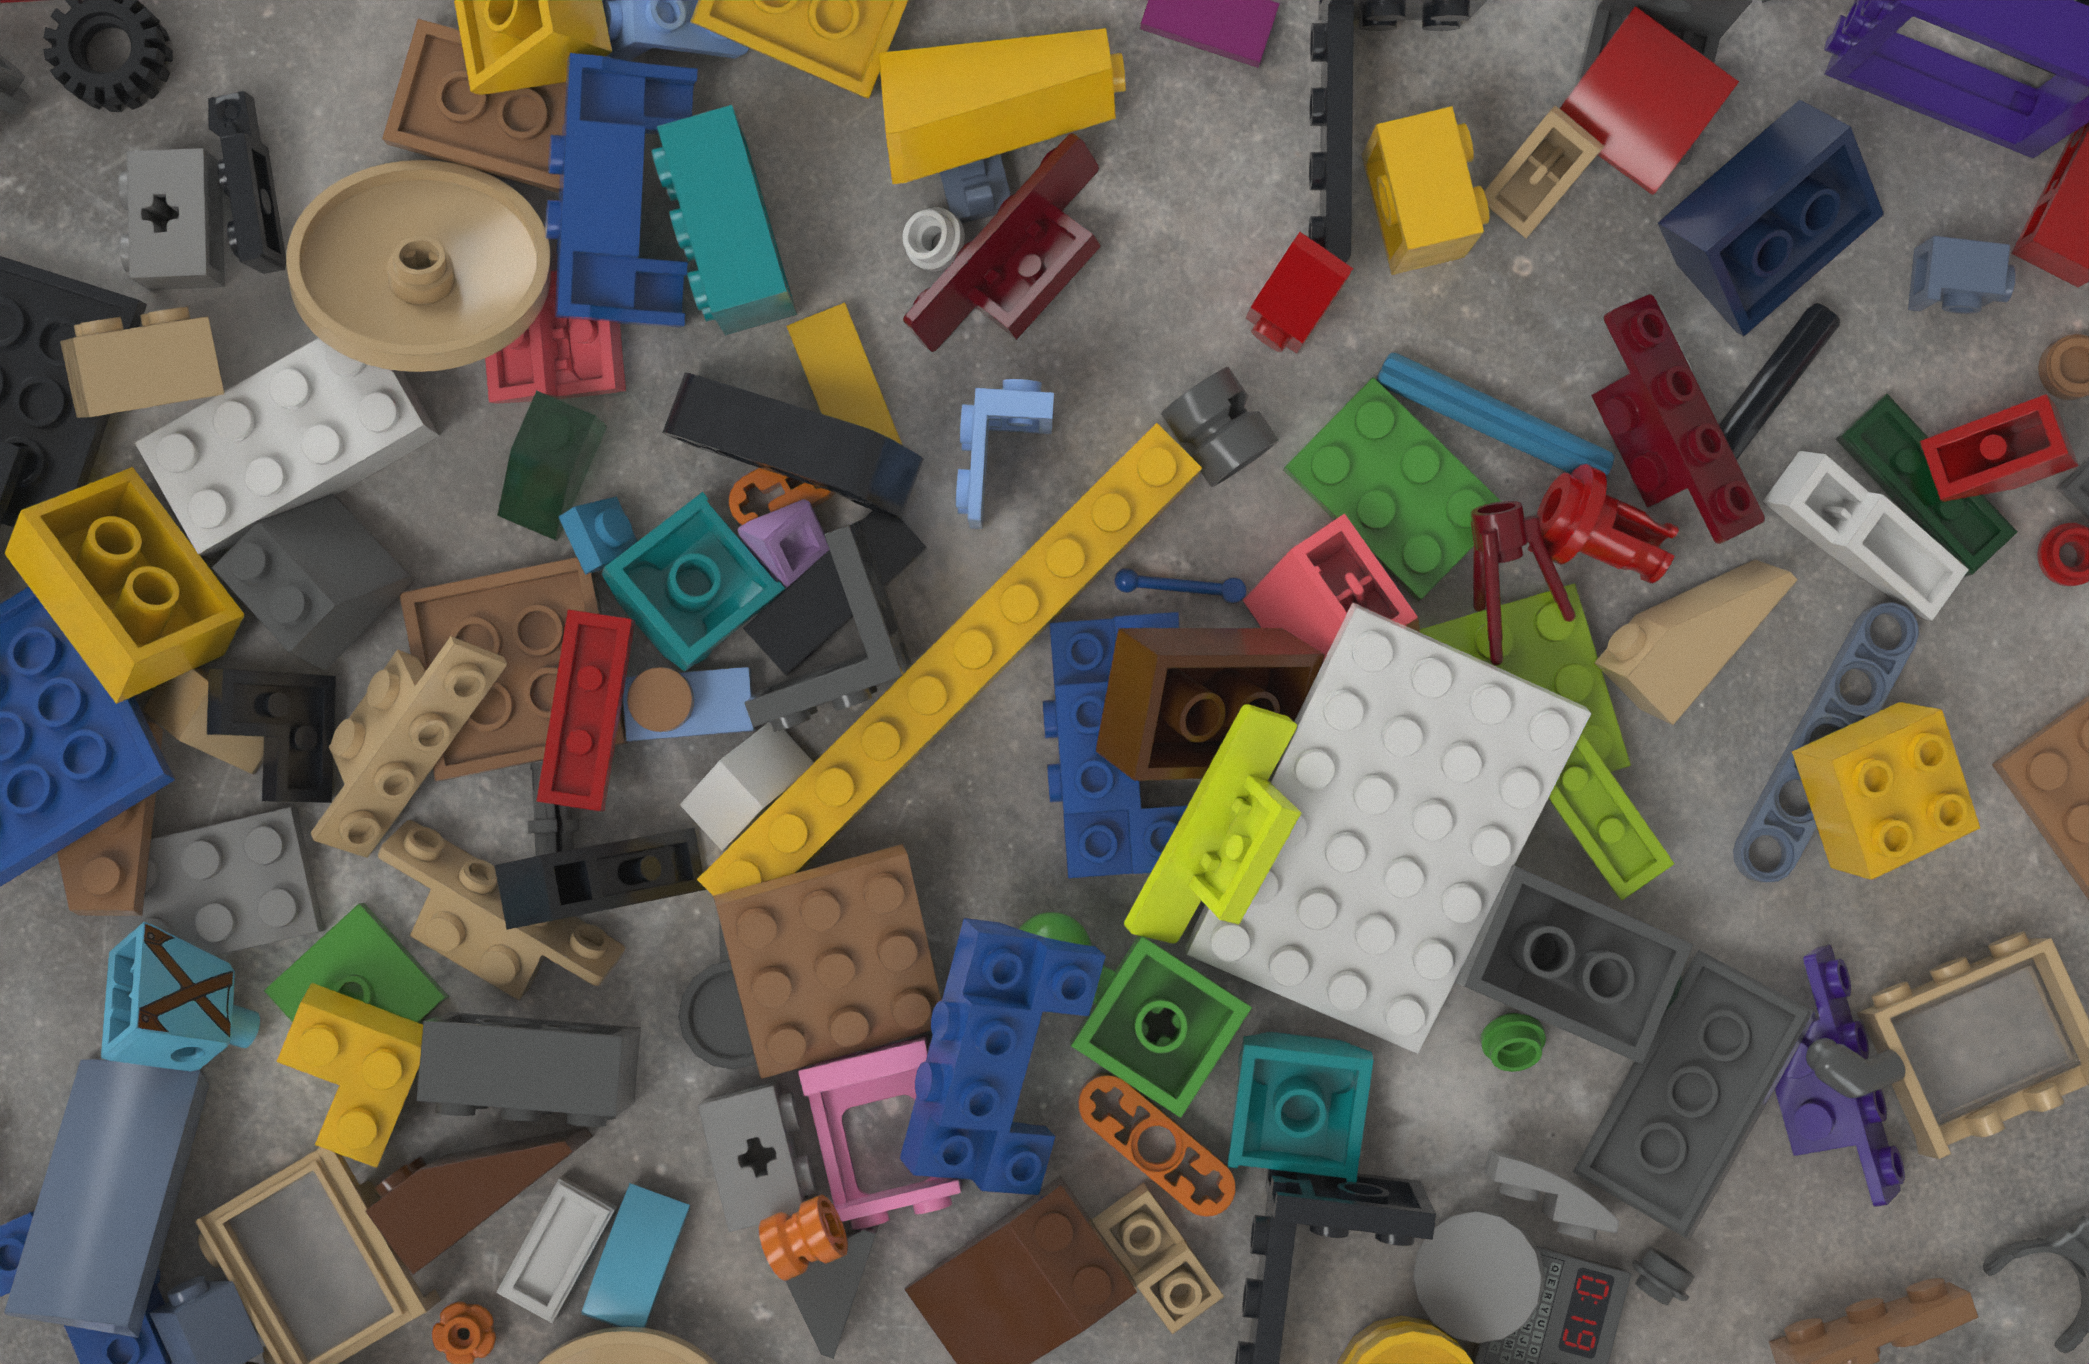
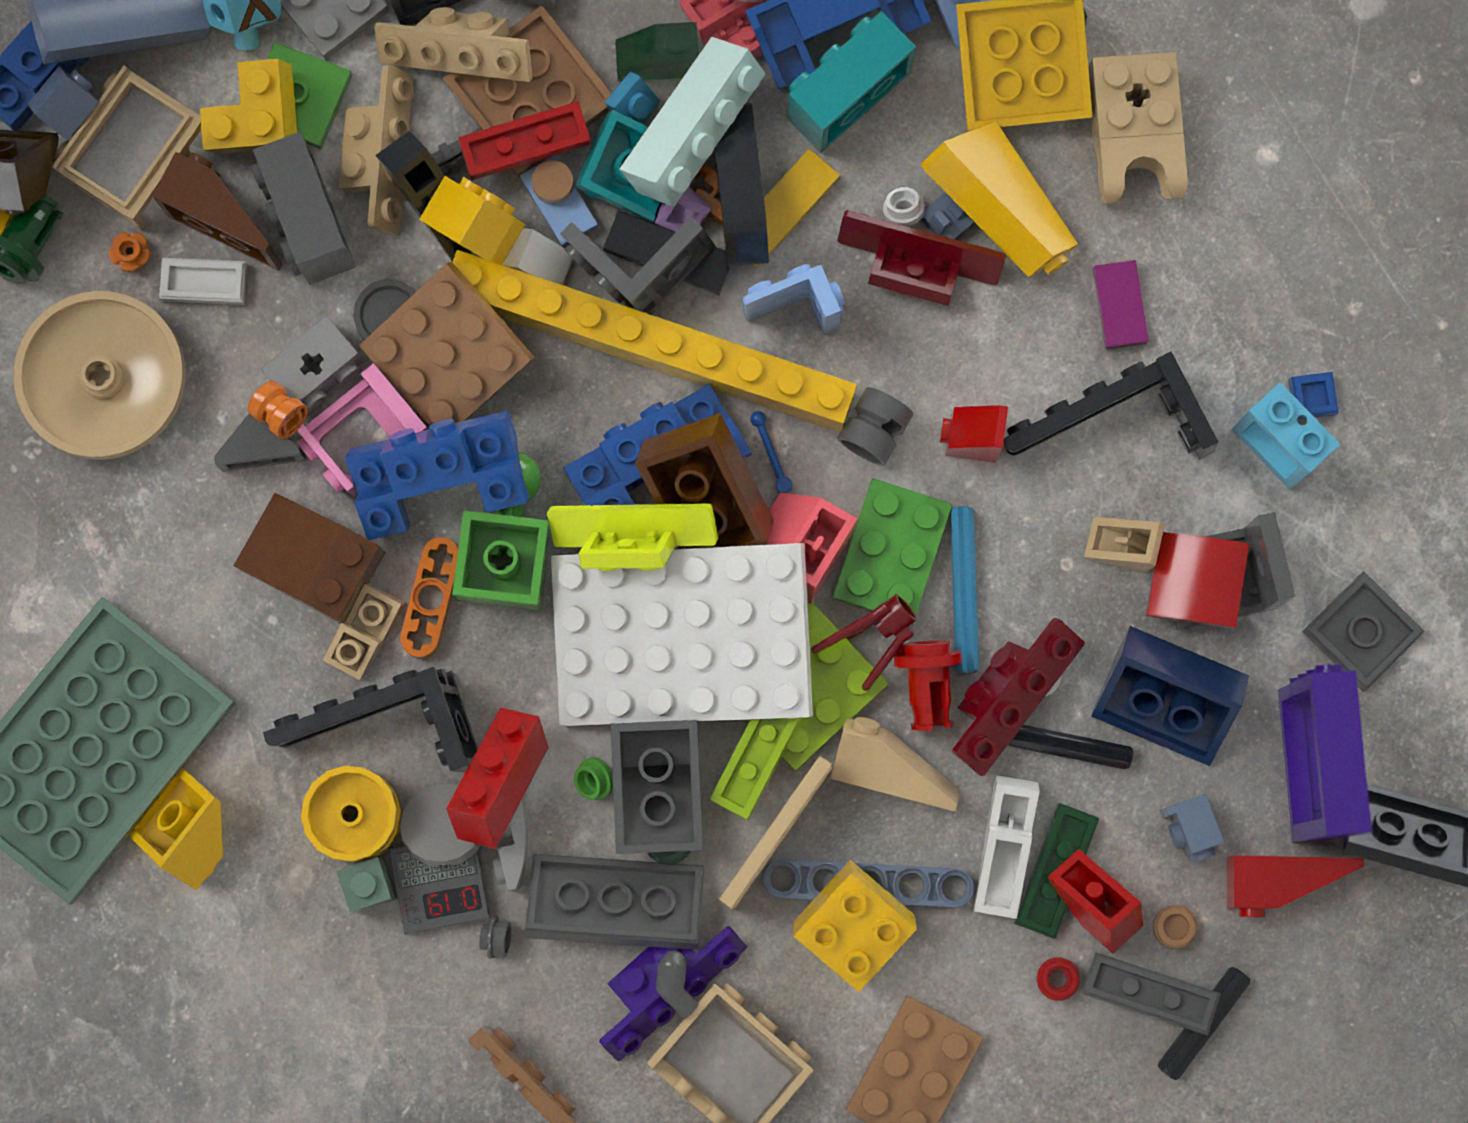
camera: 70 degrees right, 5 degrees down
(635, 1258) = (219, 327): medium azure slope -> none
(669, 840) = (473, 219): none -> yellow brick
(678, 464) = (692, 121): none -> light aqua brick
(1300, 1104) = (494, 667): teal slope -> none
(1424, 189) = (1074, 473): yellow brick -> none
(1463, 1176) = (497, 778): none -> red brick
(1715, 836) = (776, 833): none -> tan tile

